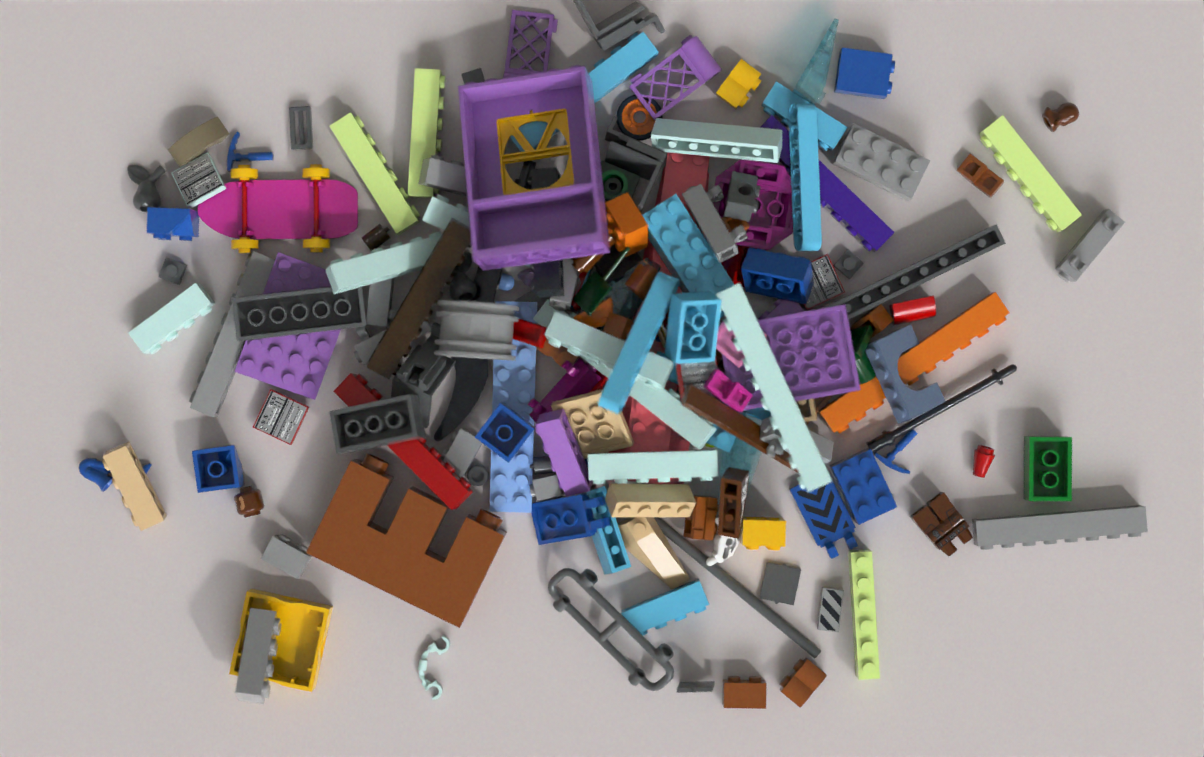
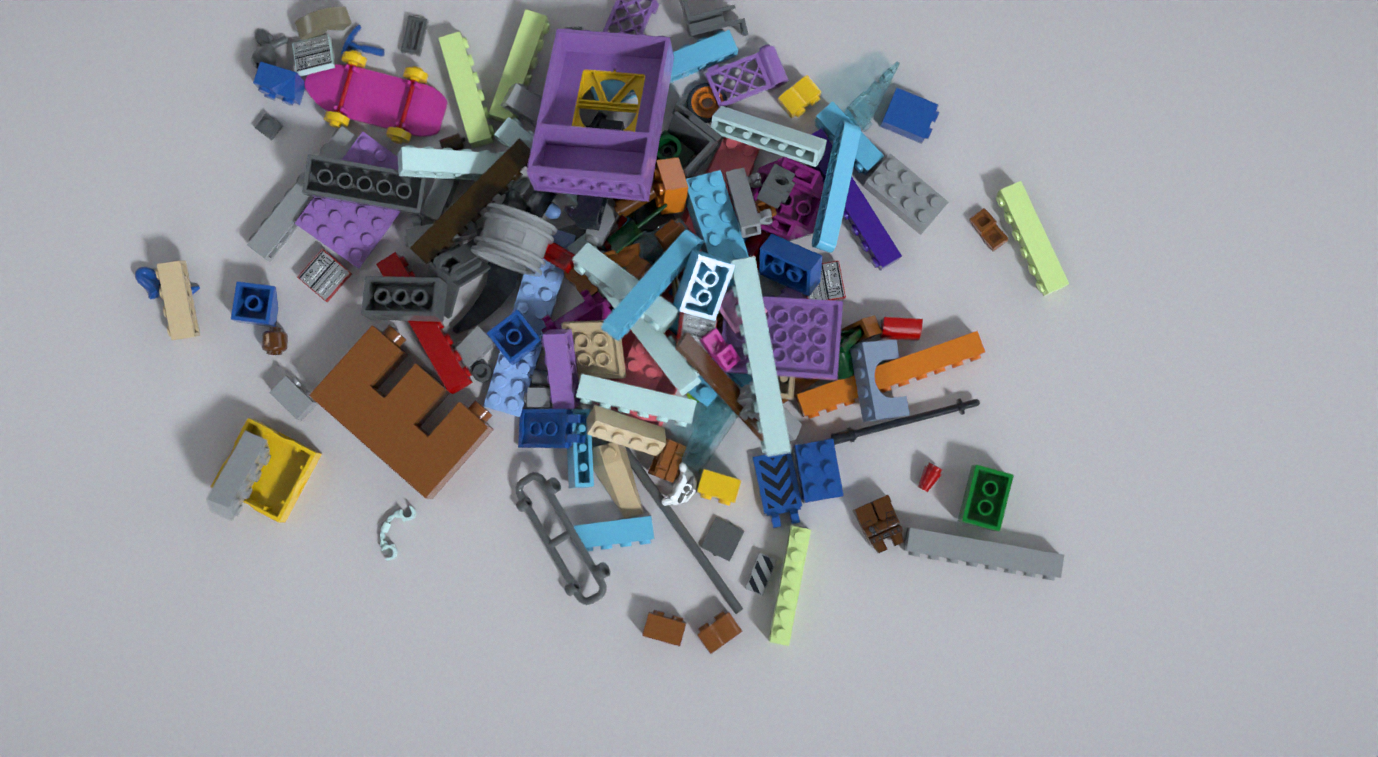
camera: 10 degrees right, 5 degrees down
(172, 318) = (255, 166): light aqua brick -> none
(697, 686) = (624, 610): dark grey piece -> none
(732, 501) = (698, 450): reddish brown slope -> none
(848, 264) = (855, 275): dark grey plate -> none
(898, 447) = (859, 445): blue piece -> none
(921, 271) = (918, 296): dark grey brick -> none
(1061, 116) = (1073, 196): reddish brown animal -> none
(1089, 246) = (1069, 313): light grey brick -> none

